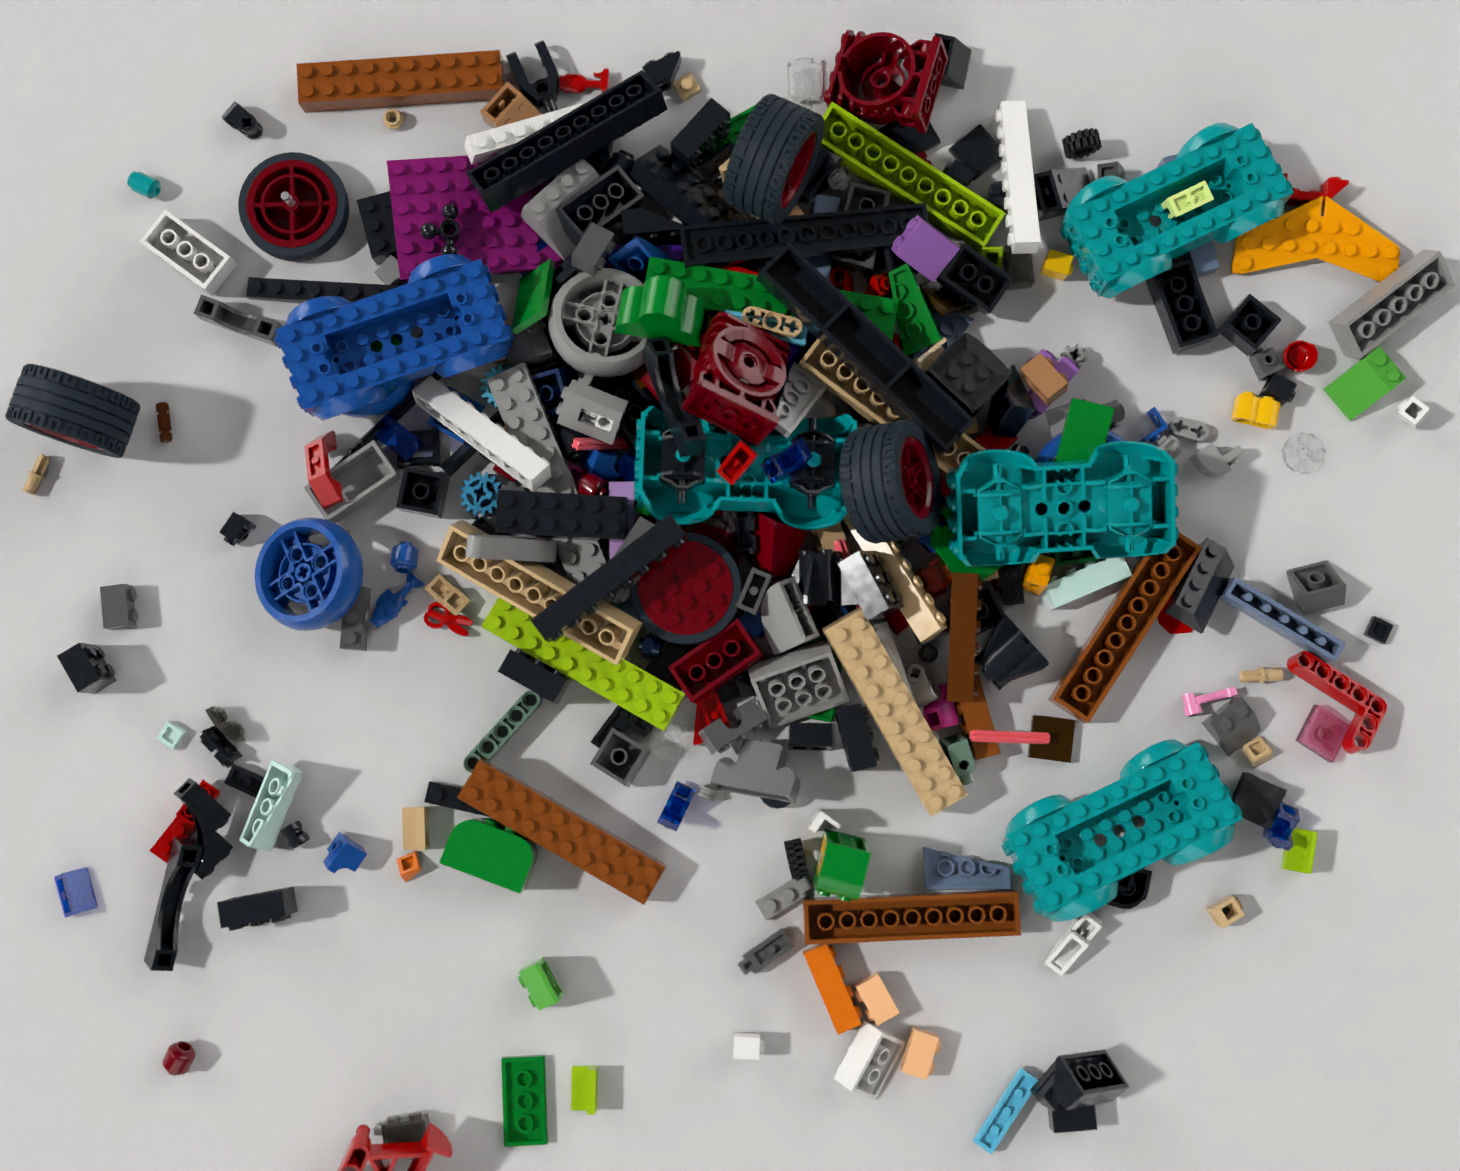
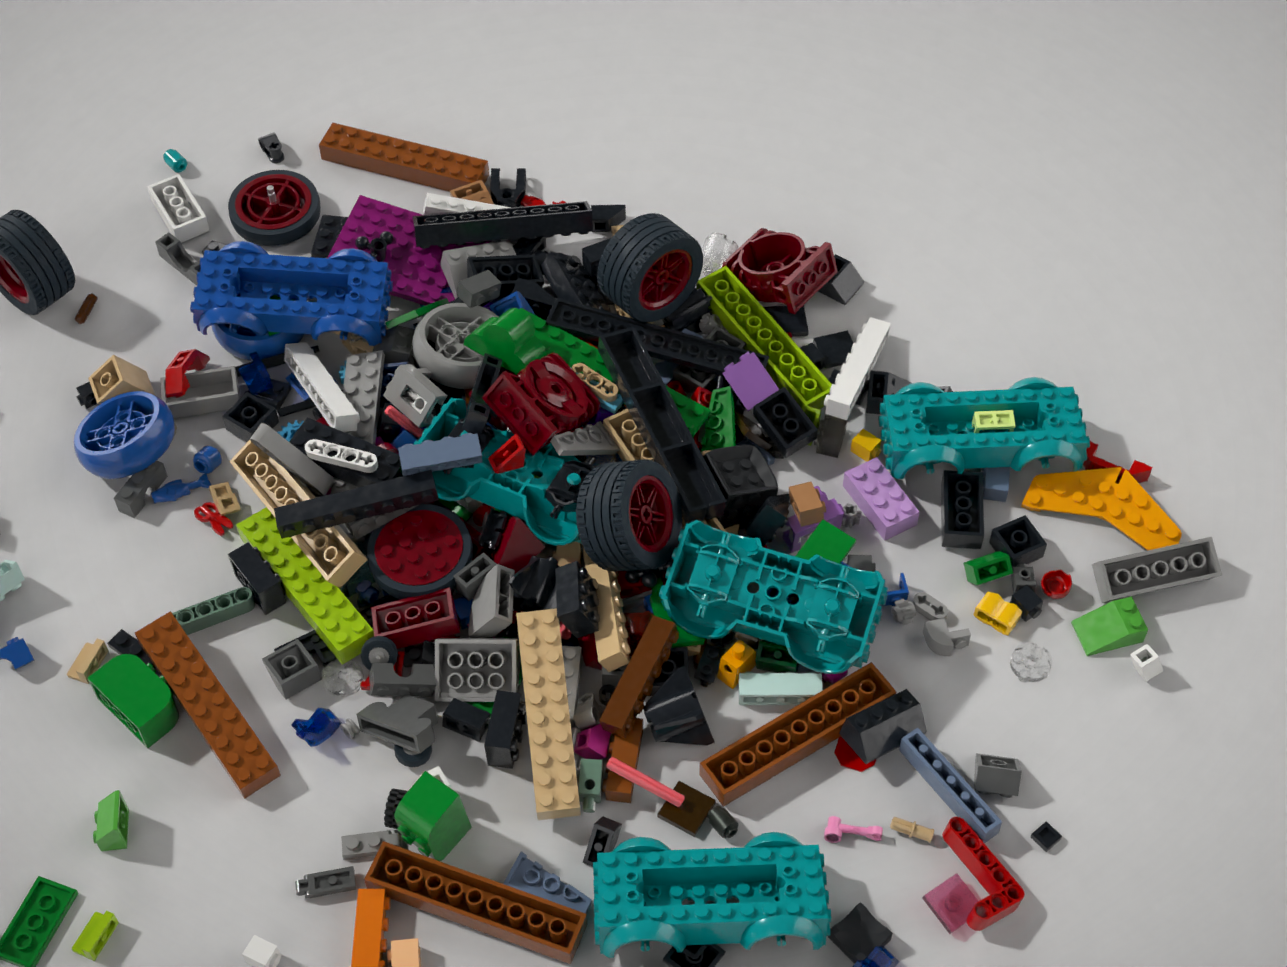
camera: 25 degrees right, 30 degrees down
(265, 509) = (118, 377): none -> tan slope
(393, 113) = (383, 181): tan plate -> none
(409, 865) = (62, 688): orange slope -> none
(562, 522) = (343, 452): none -> white beam
(672, 495) = (440, 454): none -> sand blue brick
(700, 712) = (378, 650): none -> black wheel
(787, 462) = (548, 471): clear blue brick -> none
(993, 807) = (602, 839): none -> black slope
(1081, 143) = (920, 361): black tyre -> none
(1091, 741) = (723, 822): none -> pearl dark grey brick
(1097, 325) = (880, 498): none -> lavender brick
(1230, 365) = (988, 568): none -> green brick
(1232, 725) = (866, 861): dark grey slope -> none
(1257, 751) = (882, 898): tan slope -> none

